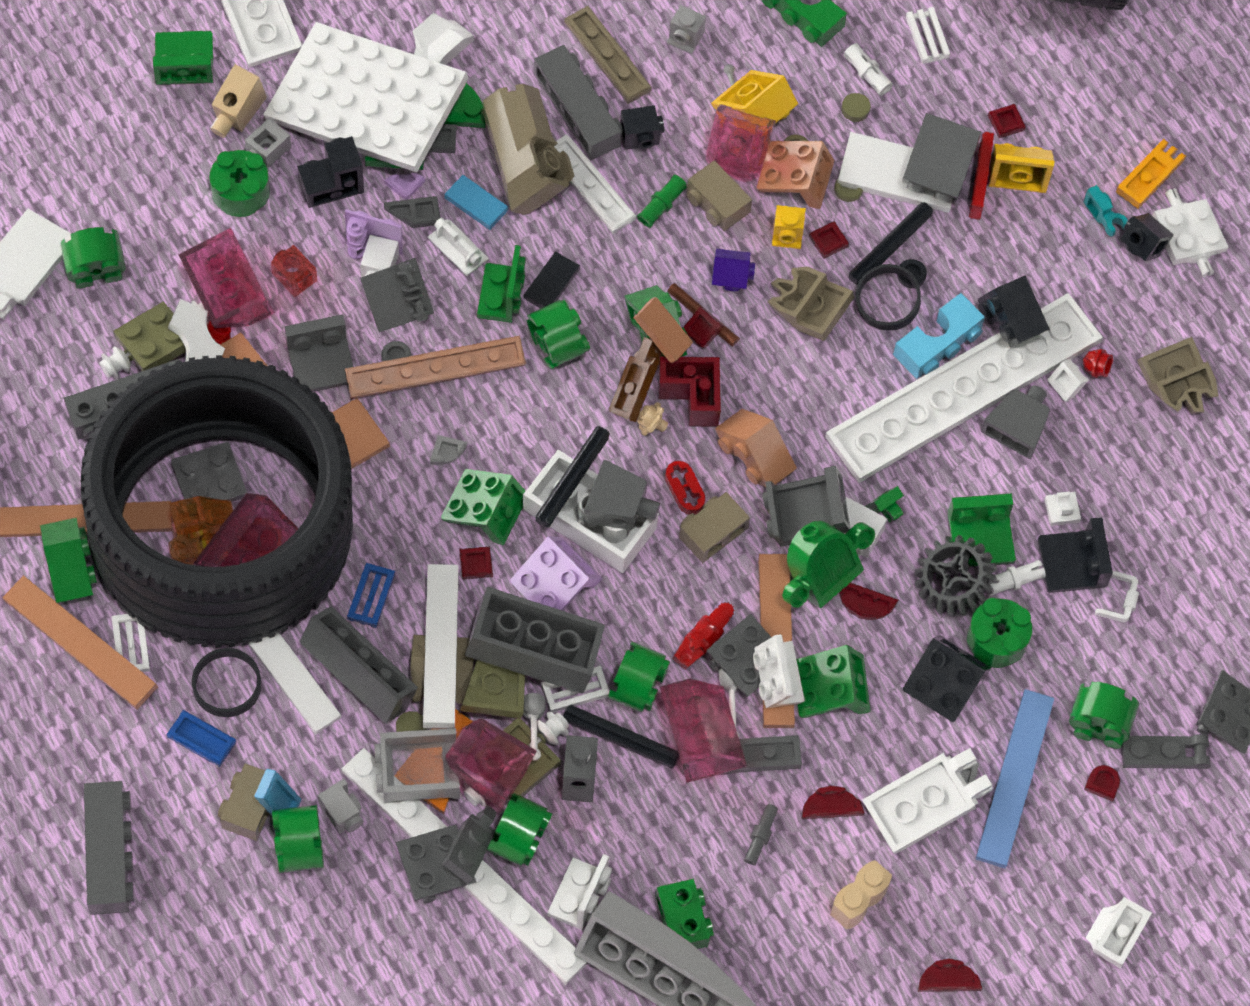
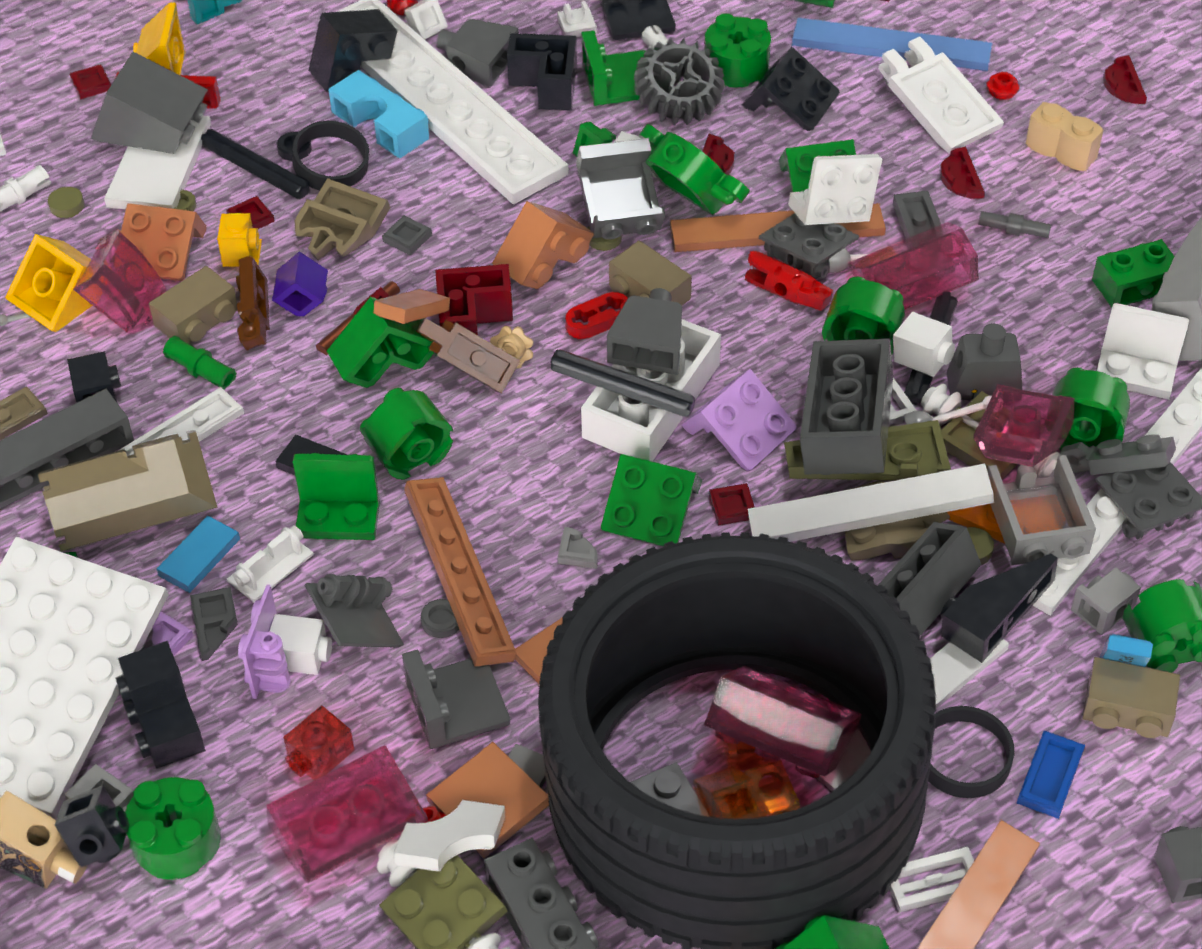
camera: 90 degrees left, 15 degrees down
(233, 129) = (92, 826): none -> black brick
(329, 709) = (994, 606): none -> black slope
(604, 715) = (923, 344): none -> white brick
(721, 236) = (253, 305): none -> reddish brown hinge
(794, 354) = (407, 235): none -> dark grey tile
(943, 871) = (1002, 85): none -> red plate
(983, 473) = (546, 64): none -> black brick

